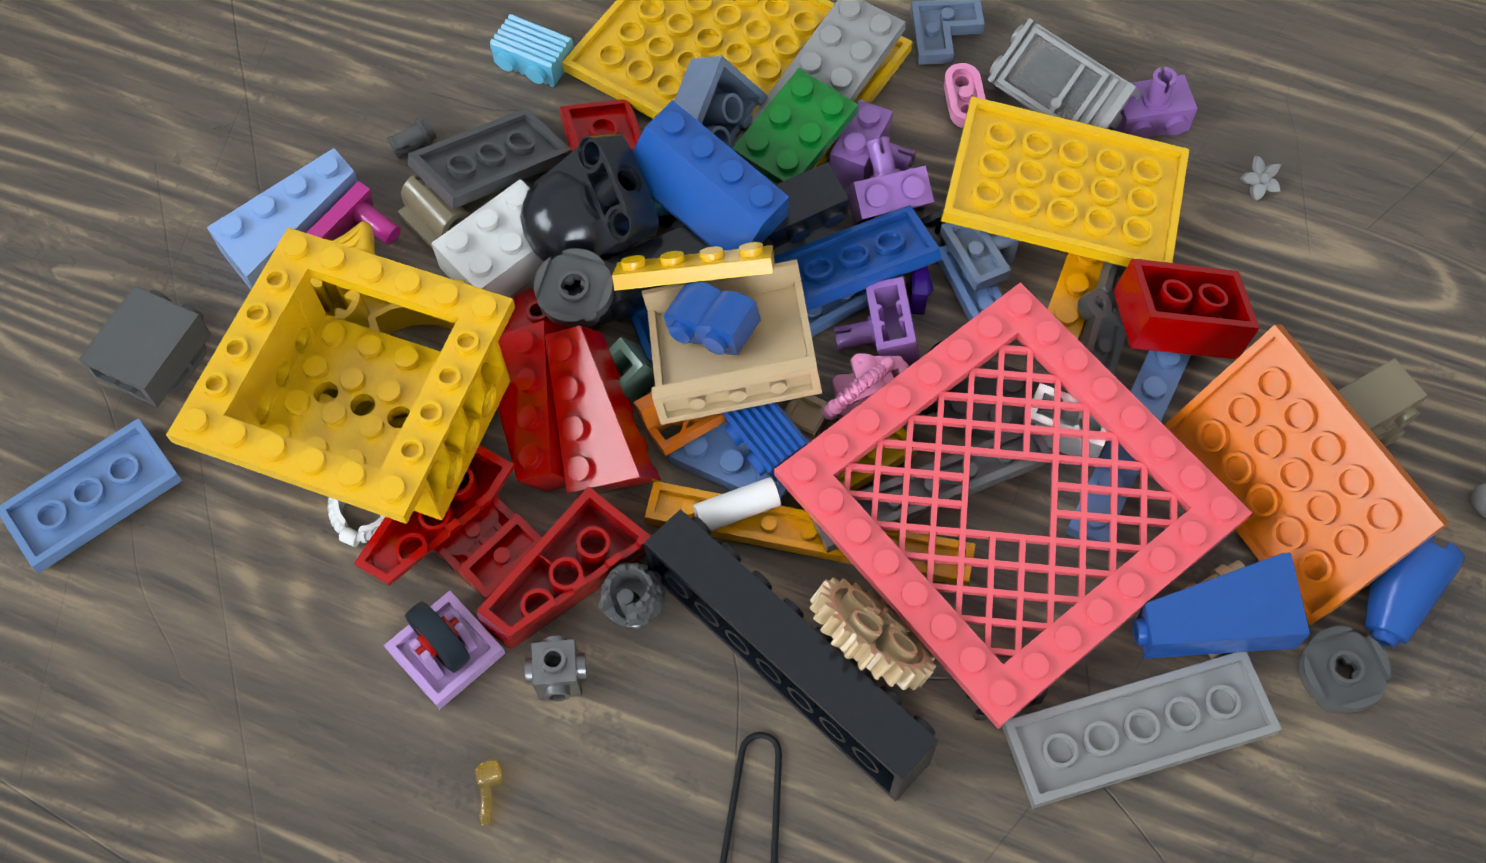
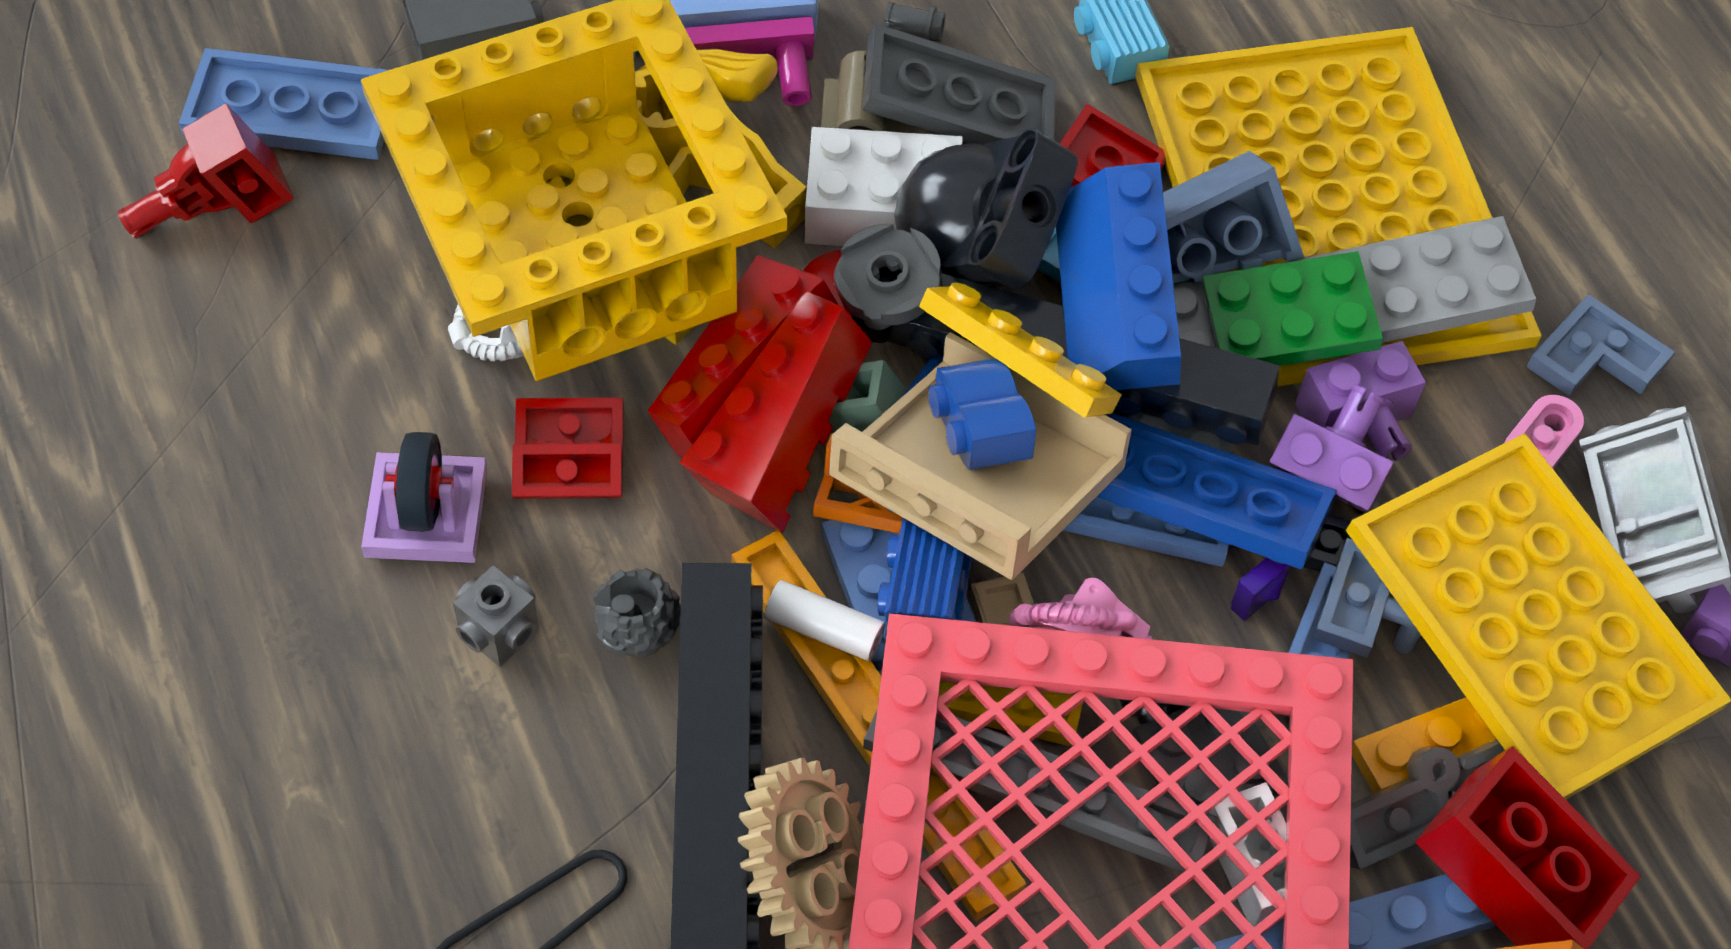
camera: 40 degrees right, 5 degrees down
(97, 569) = (215, 171): none -> red brick
(400, 546) = (499, 375): red wedge -> none
(487, 775) = (334, 652): clear yellow hand -> none
(562, 568) = (595, 526): red wedge -> none
(889, 325) = (1183, 590): medium lavender brick -> none

